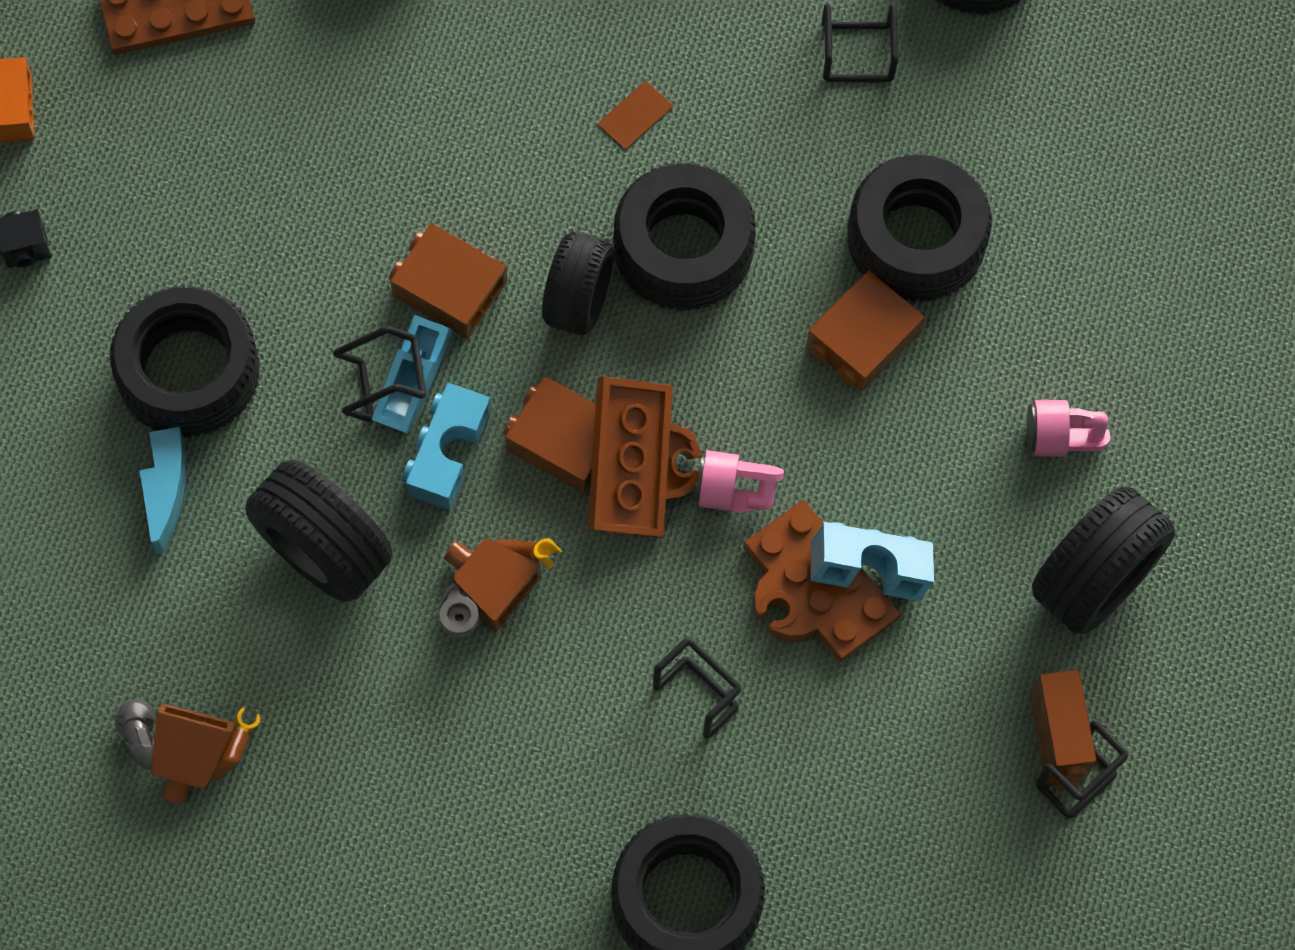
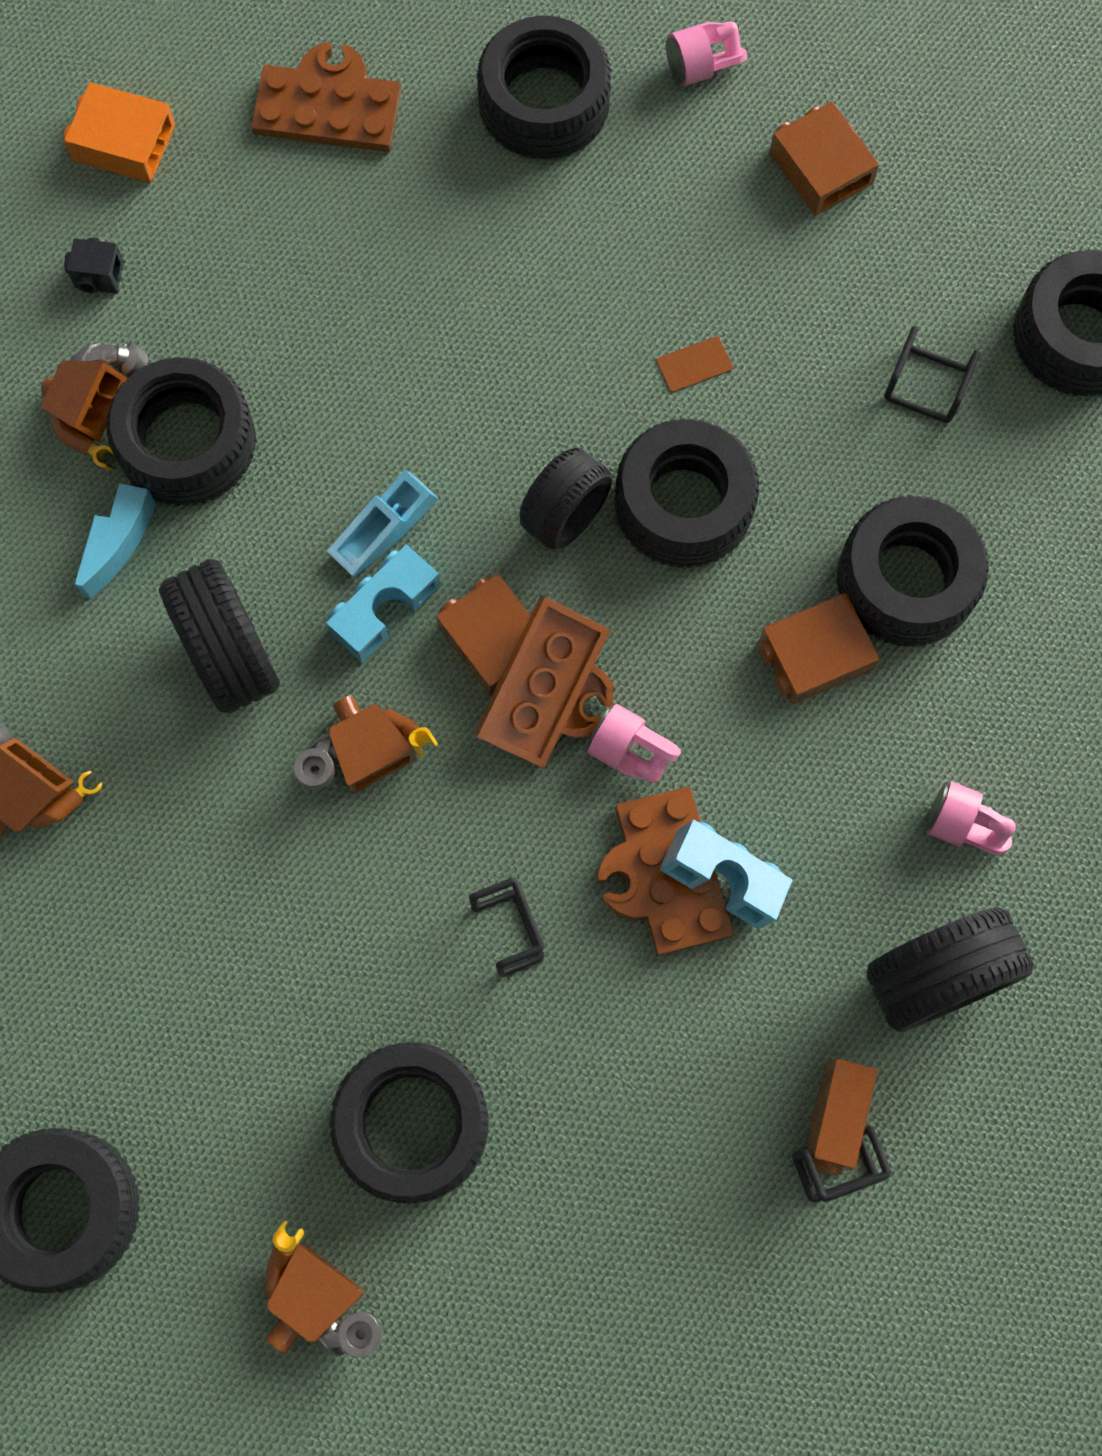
camera: 25 degrees right, 5 degrees up
(76, 361) = (84, 390): none -> dark orange torso
(350, 410) = (324, 479): black piece -> none
(448, 280) = (453, 449): dark orange brick -> none

